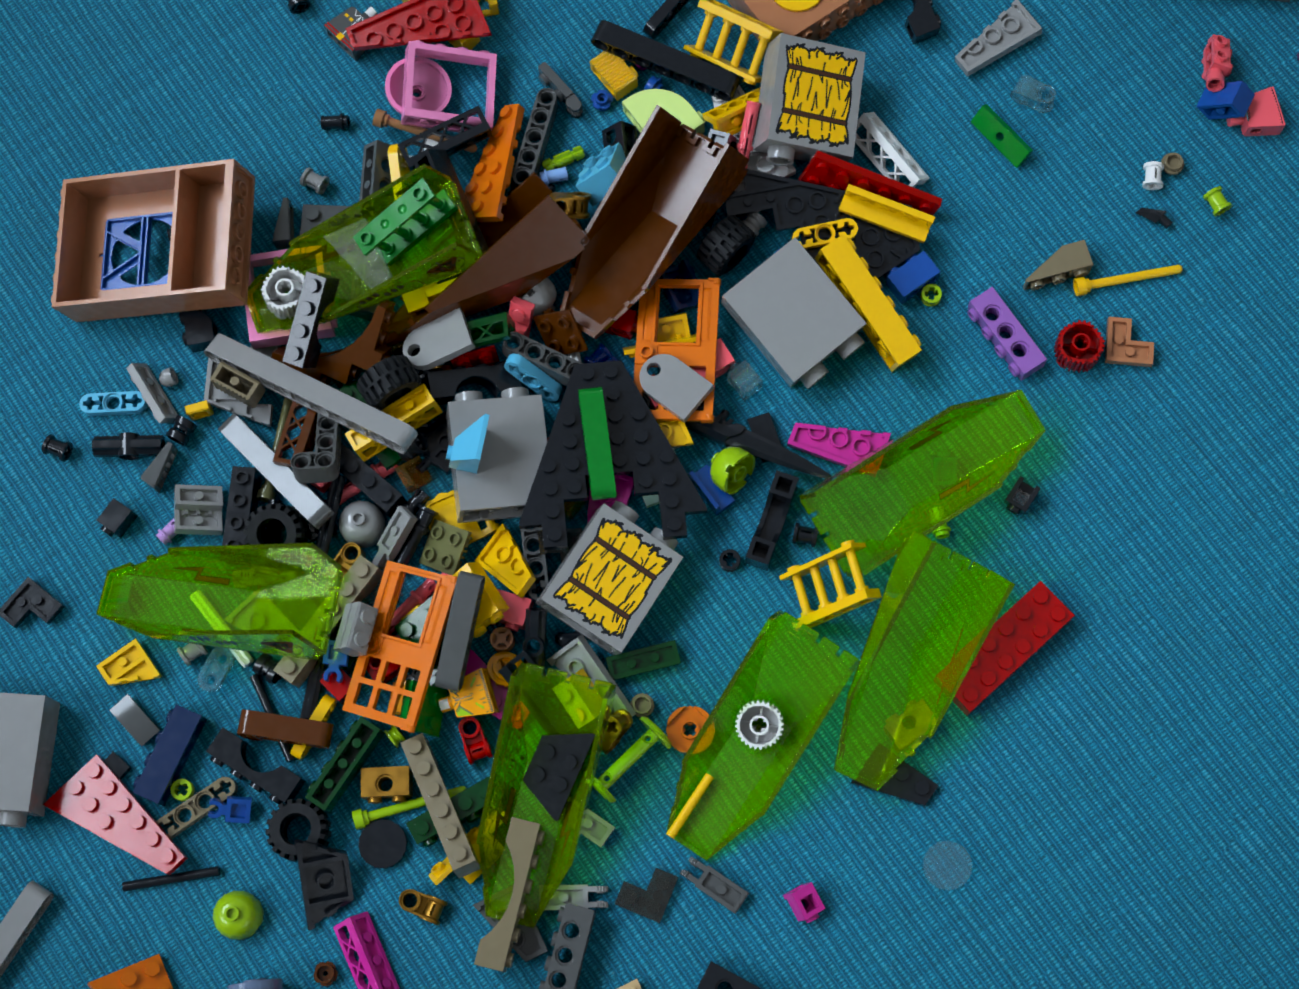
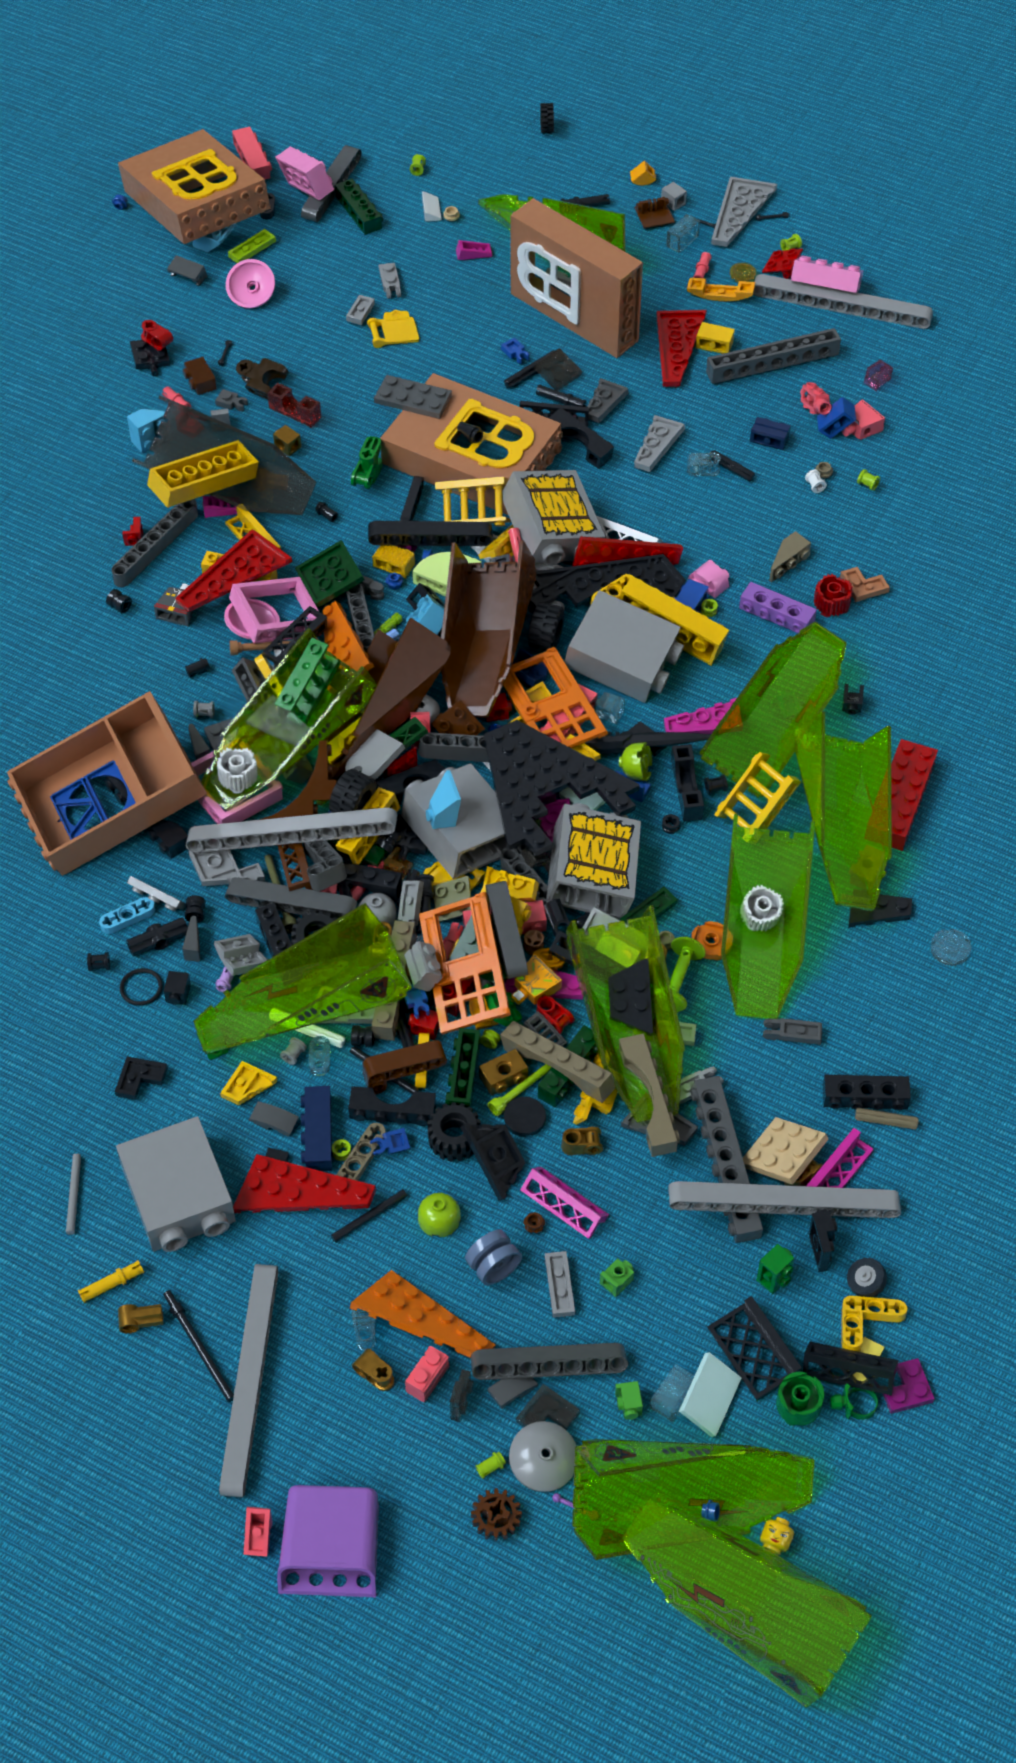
camera: 35 degrees left, 20 degrees down
(72, 481) = (160, 984): none -> black tyre
(168, 377) = (162, 880): light grey hinge -> none
(199, 410) = (202, 888): yellow tile -> none
(237, 384) = (227, 853): dark tan brick -> none
(315, 296) = (268, 790): arch -> none
(447, 759) = (538, 1022): none -> dark grey slope
(528, 66) = (329, 574): none -> dark green plate
(533, 377) = (449, 755): medium azure beam -> none
(597, 443) = (535, 769): green beam -> none
(649, 902) = (752, 1065): clear smoke plate -> none
(676, 385) = (565, 720): light grey tile -> none
(689, 806) = (742, 987): yellow bar -> none
(809, 895) = (866, 1010): dark pink brick -> none
(886, 213) = (649, 563): yellow fence -> none
(954, 256) = (711, 576): none -> bright pink cylinder
(993, 127) = (686, 493): green tile -> none
(1068, 110) = (735, 467): none -> black axle
(1082, 285) = (811, 562): yellow piece -> none
(1138, 84) = (770, 433): none -> dark blue brick
(1155, 216) = (832, 505): black bar -> none

